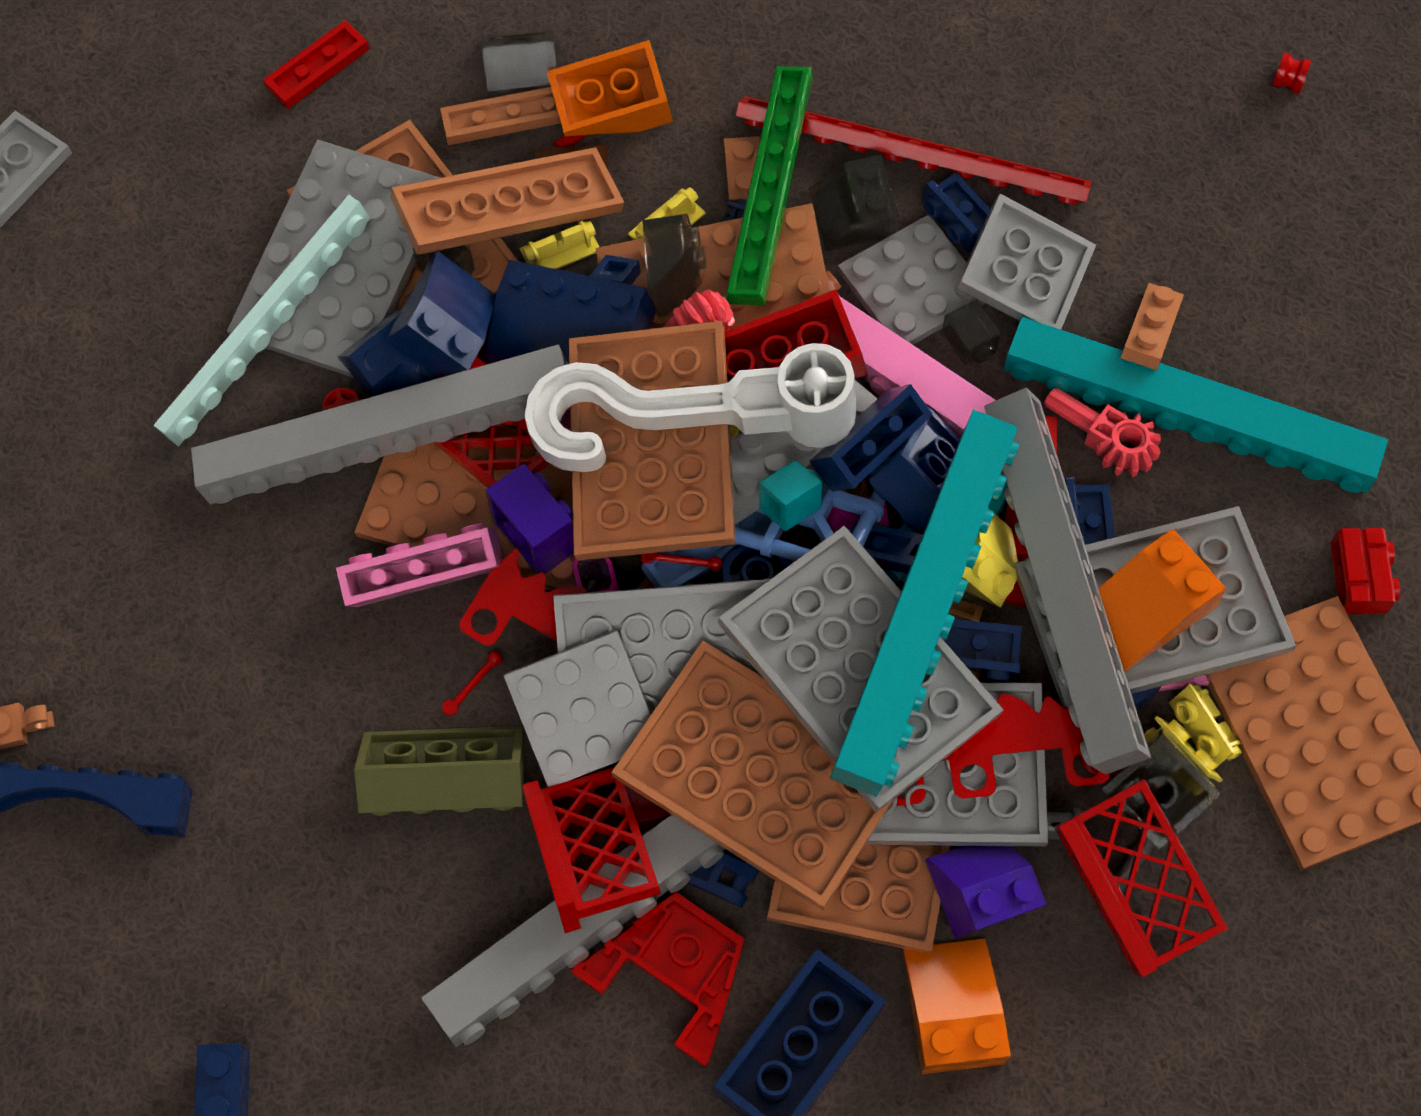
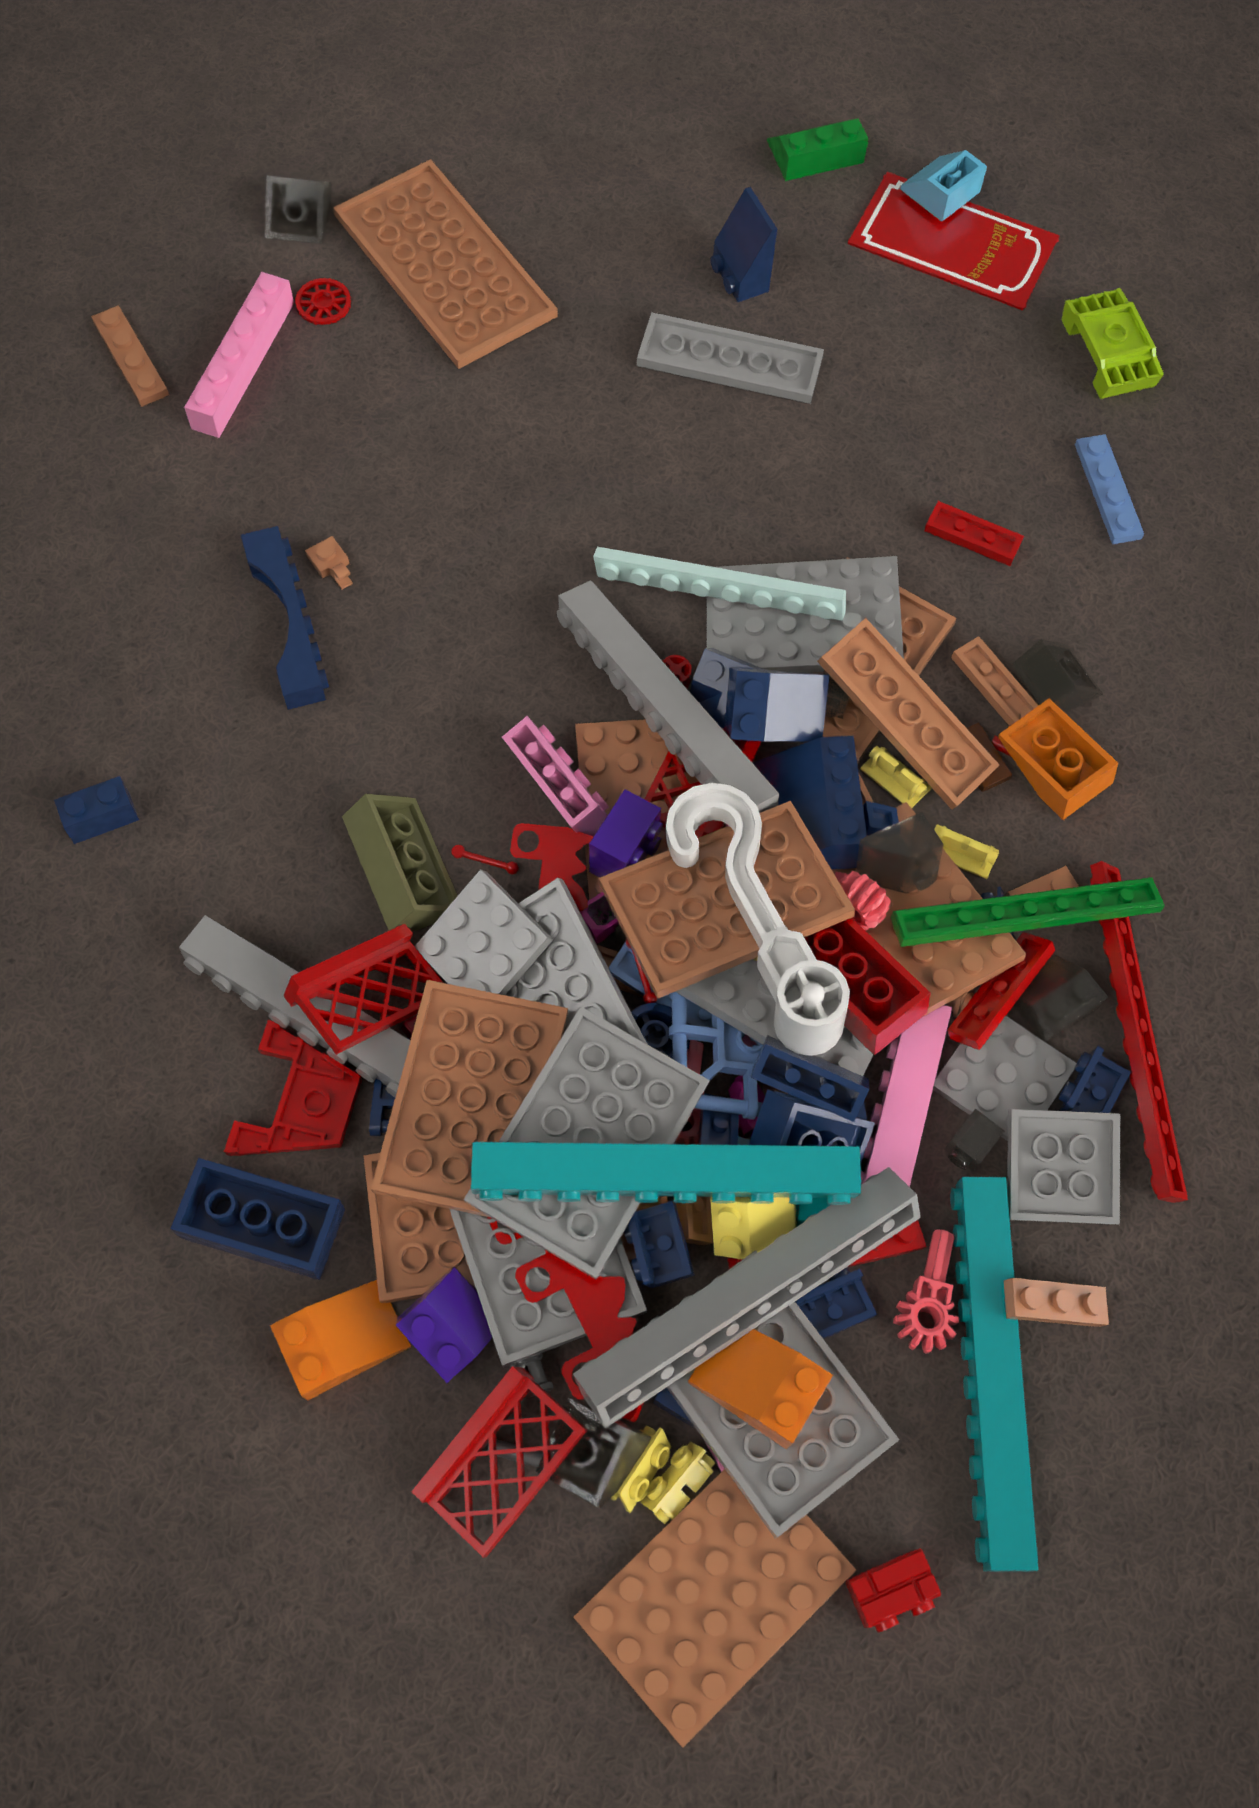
camera: 65 degrees right, 0 degrees up
(790, 495) = (728, 1030): teal brick -> none
(840, 249) = (1000, 994): none -> red plate

